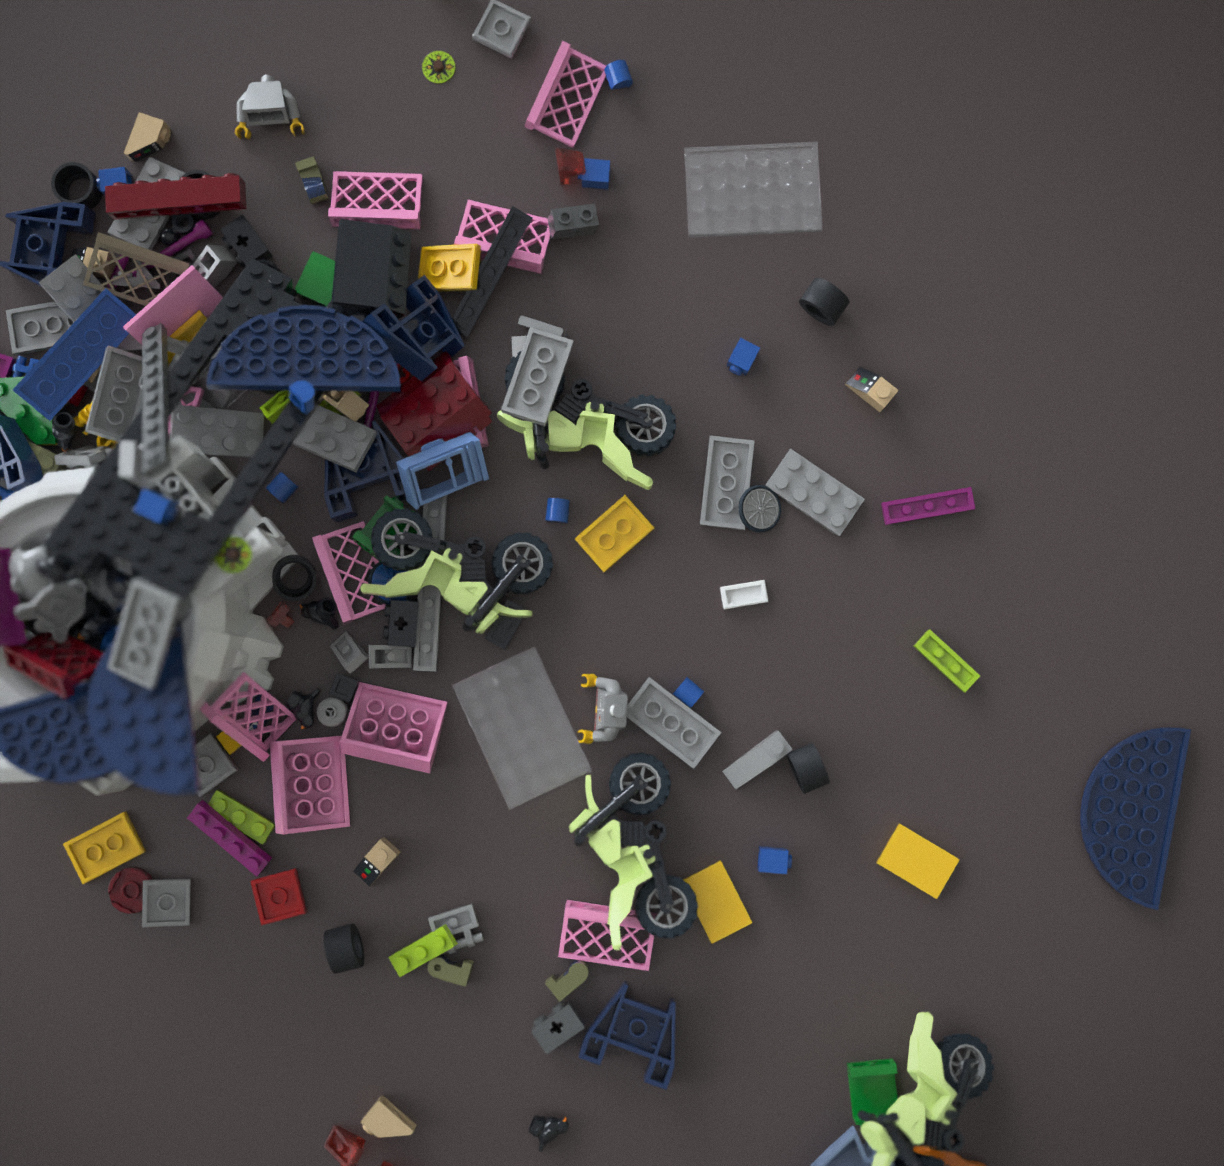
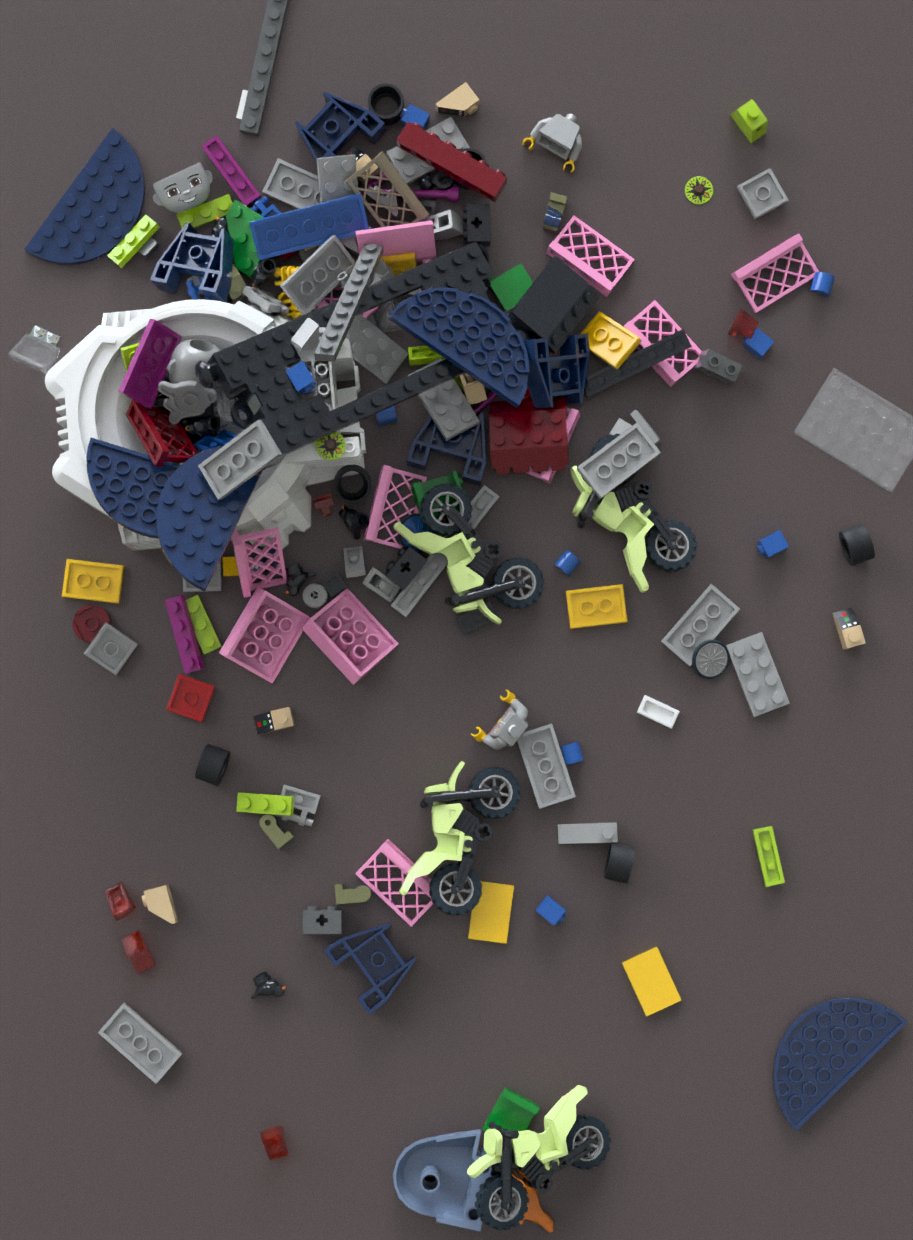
camera: 30 degrees right, 0 degrees up
(302, 396) = (448, 366): blue brick -> none
(436, 451) = (513, 465): medium blue piece -> none
(522, 728) = (438, 697): clear plate -> none
(928, 506) = (831, 739): magenta plate -> none

